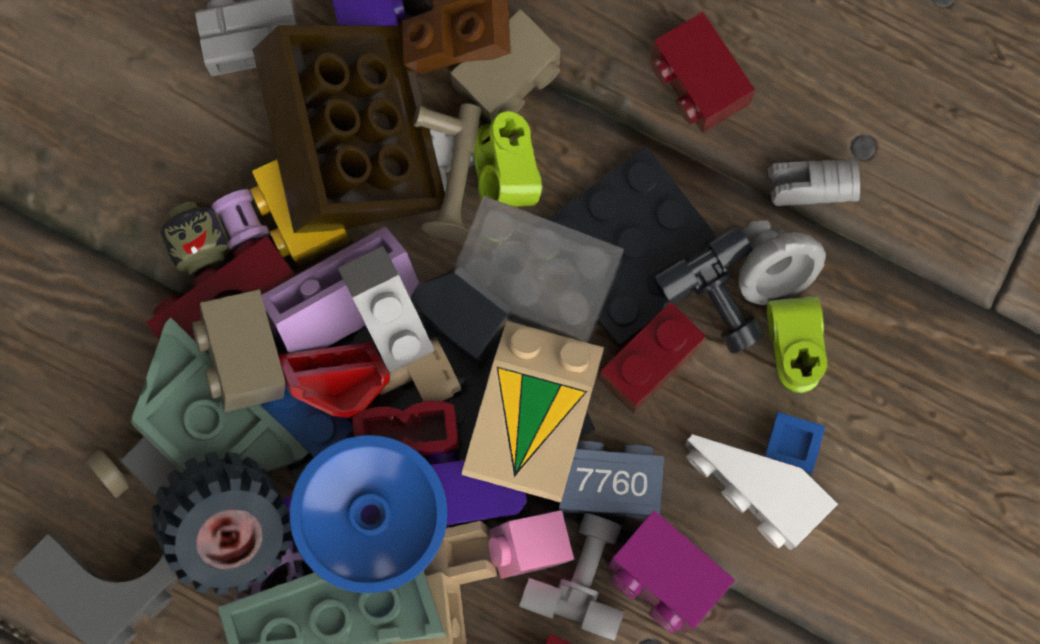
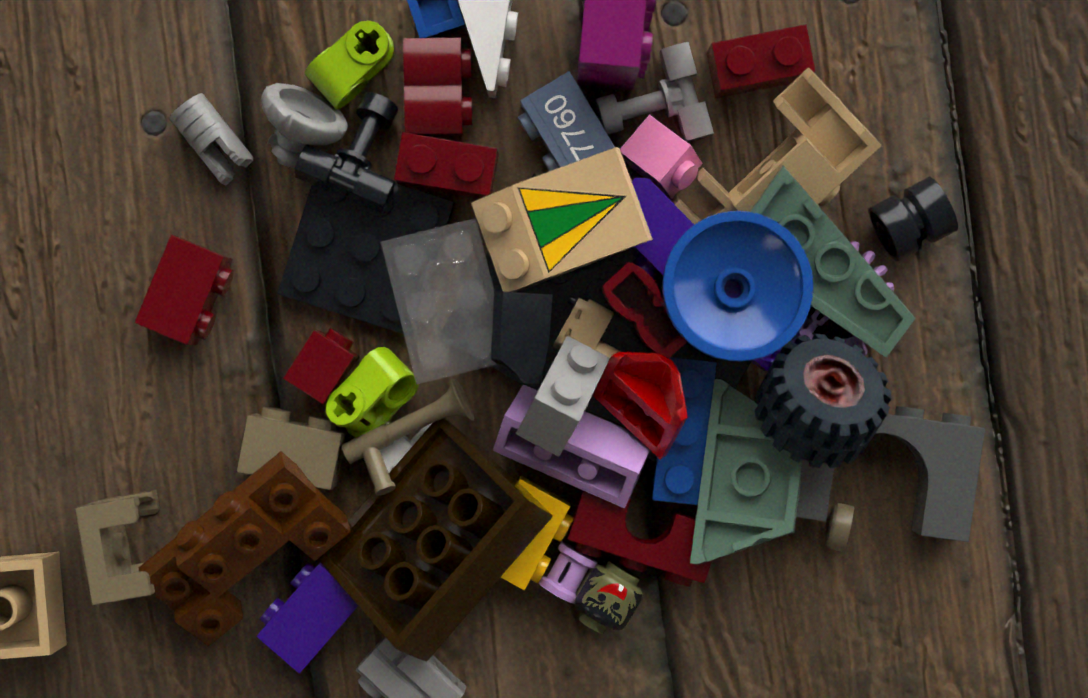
camera: 130 degrees left, 10 degrees up
(240, 351) = (679, 486): dark tan brick -> none
(559, 140) = (322, 364): none -> dark red brick
(727, 396) = (435, 87): none -> dark red brick

